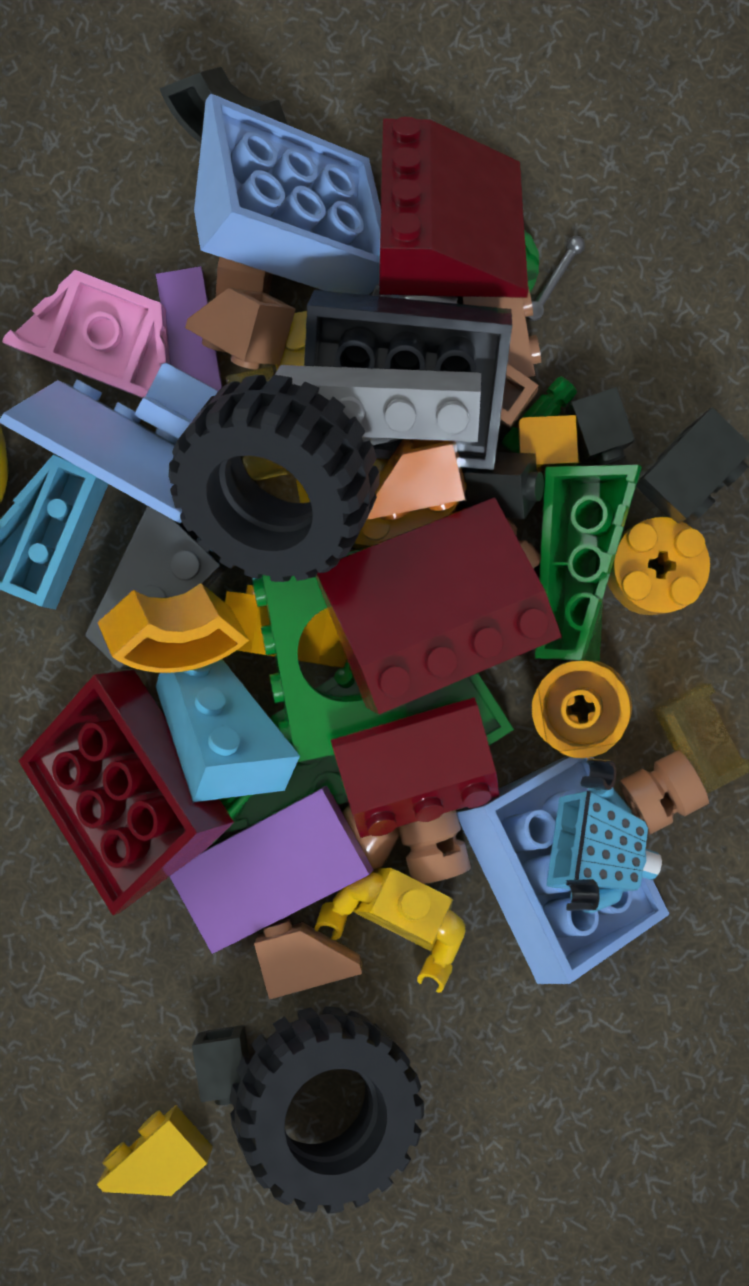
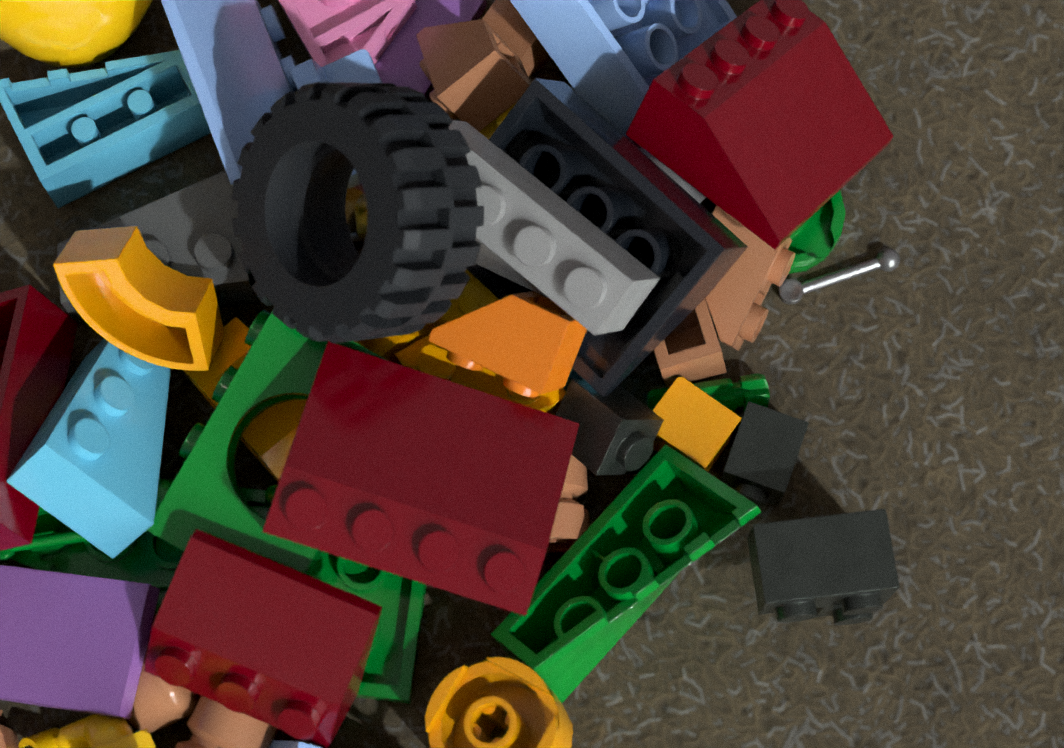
camera: 45 degrees right, 15 degrees down
(684, 561) = (705, 611): light orange brick -> none

